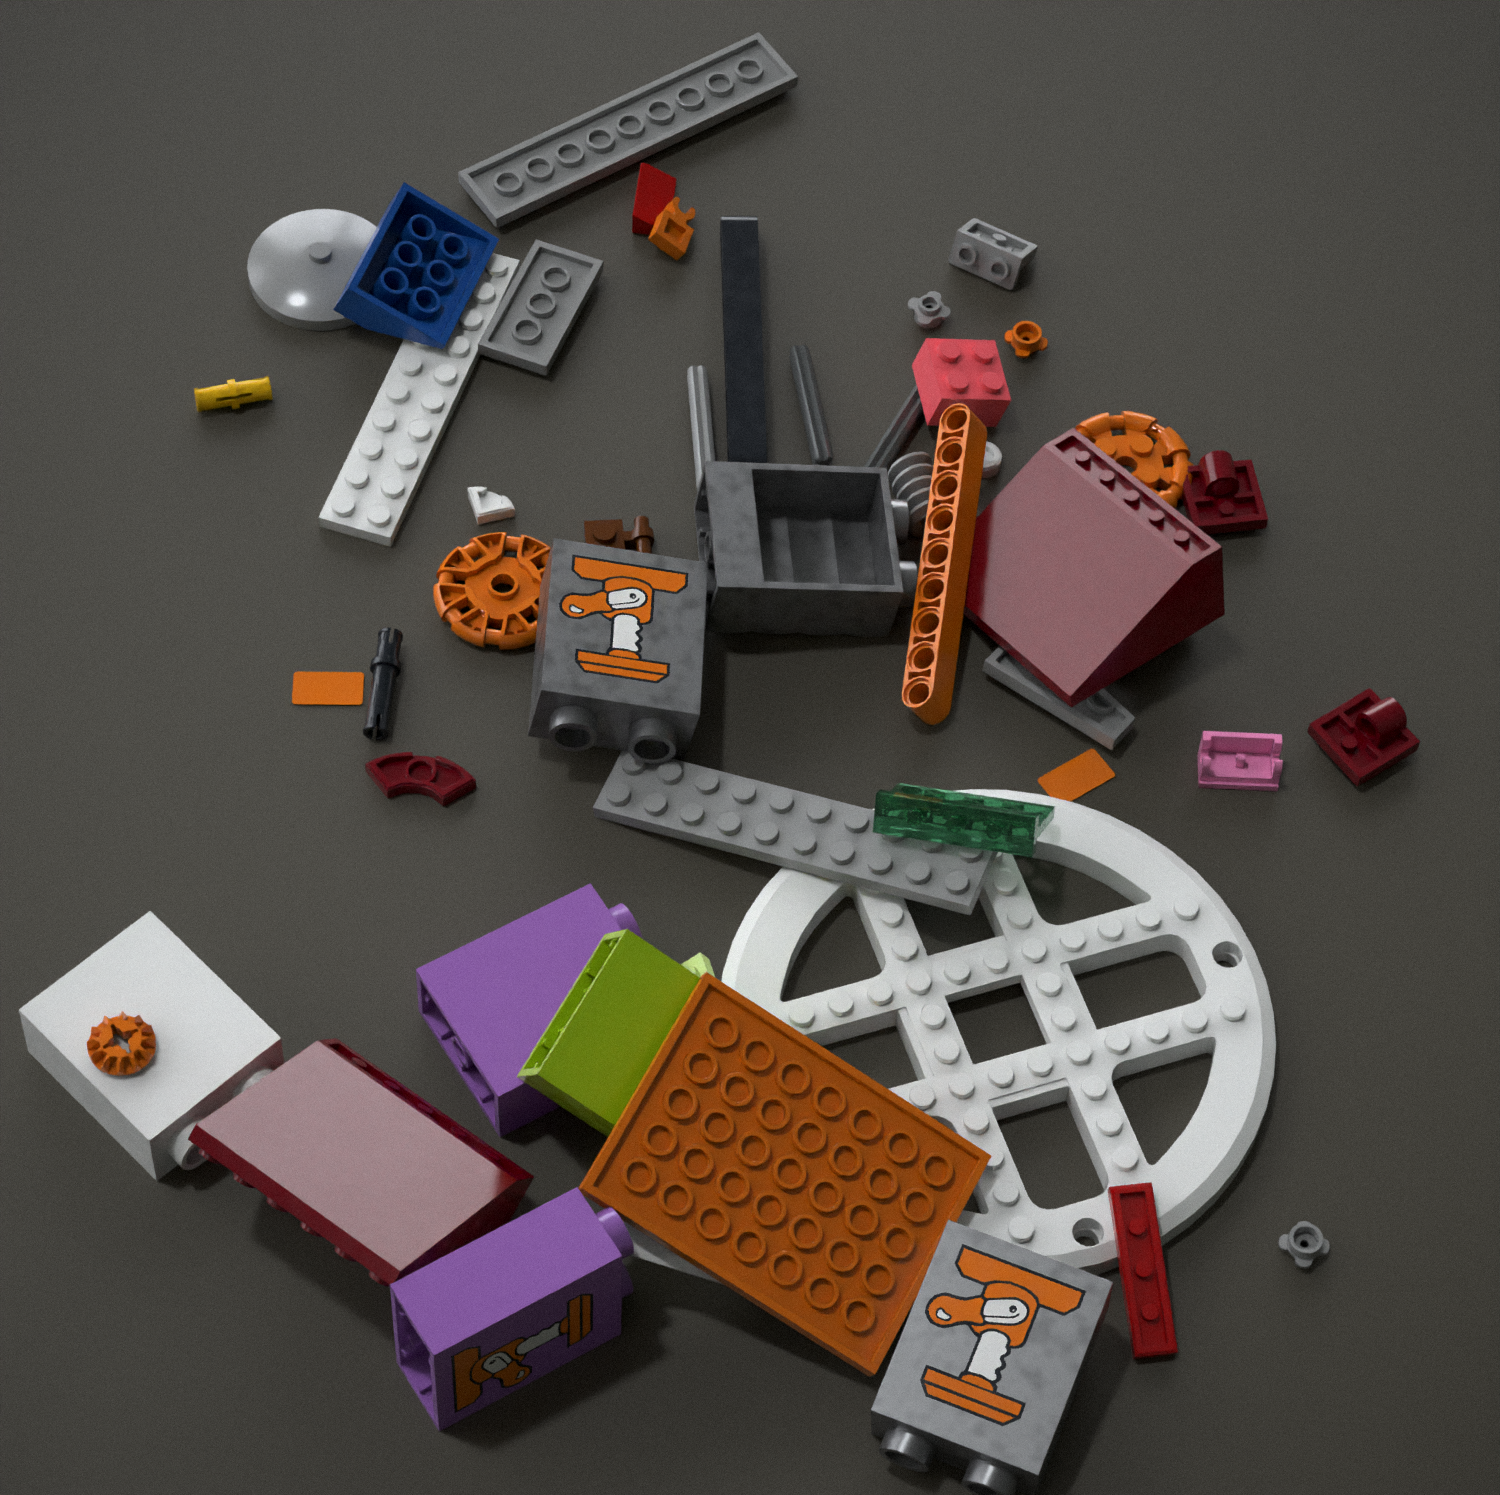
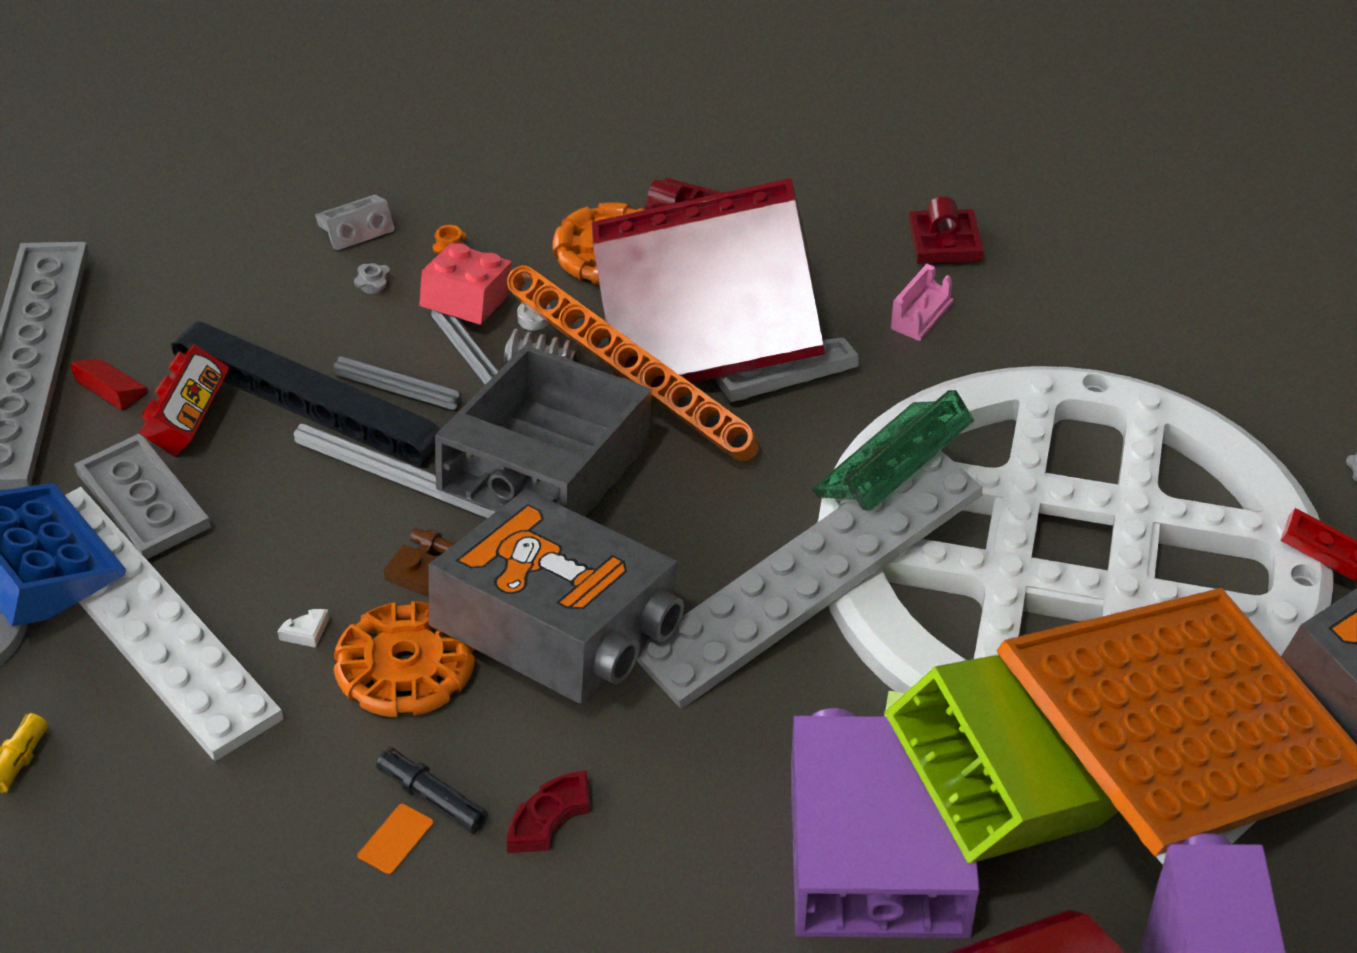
camera: 55 degrees left, 10 degrees down
(659, 264) = (182, 399): none -> brick
(671, 229) = (144, 377): orange plate -> none
(1076, 776) = (862, 399): orange sticker -> none

